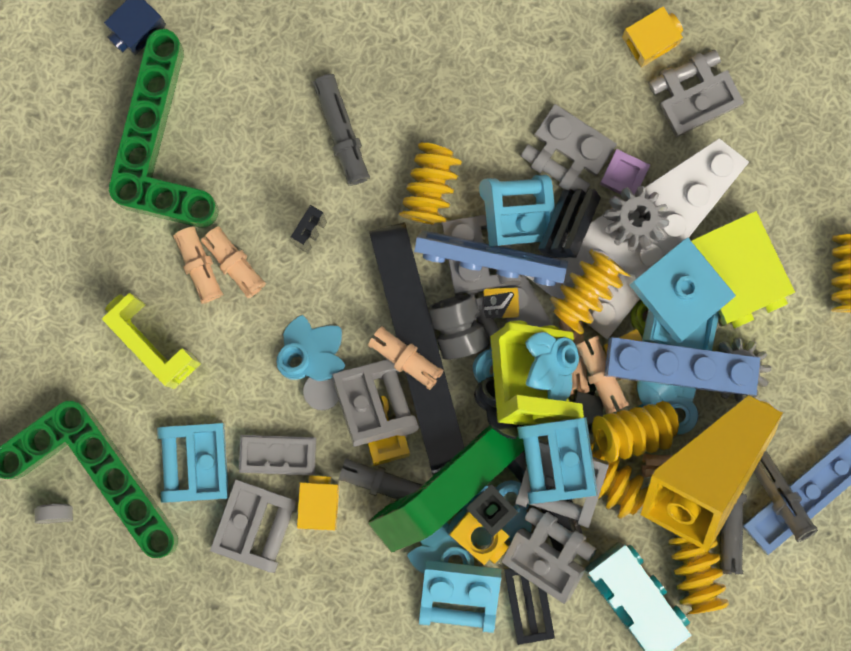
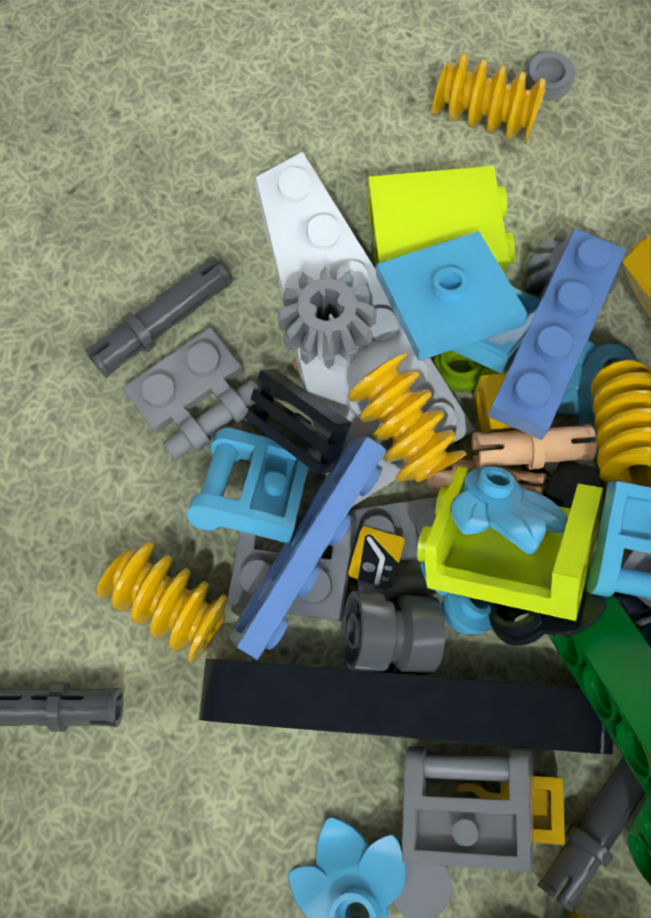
camera: 70 degrees left, 10 degrees down
(308, 223) = (161, 815): black tile -> none
(405, 357) = (418, 734): light nougat pin -> none
(612, 107) = (150, 322): none -> dark grey pin
(624, 172) = (253, 330): lavender plate -> none
(653, 36) = (85, 232): yellow brick -> none
(700, 103) = (198, 206): light grey plate -> none

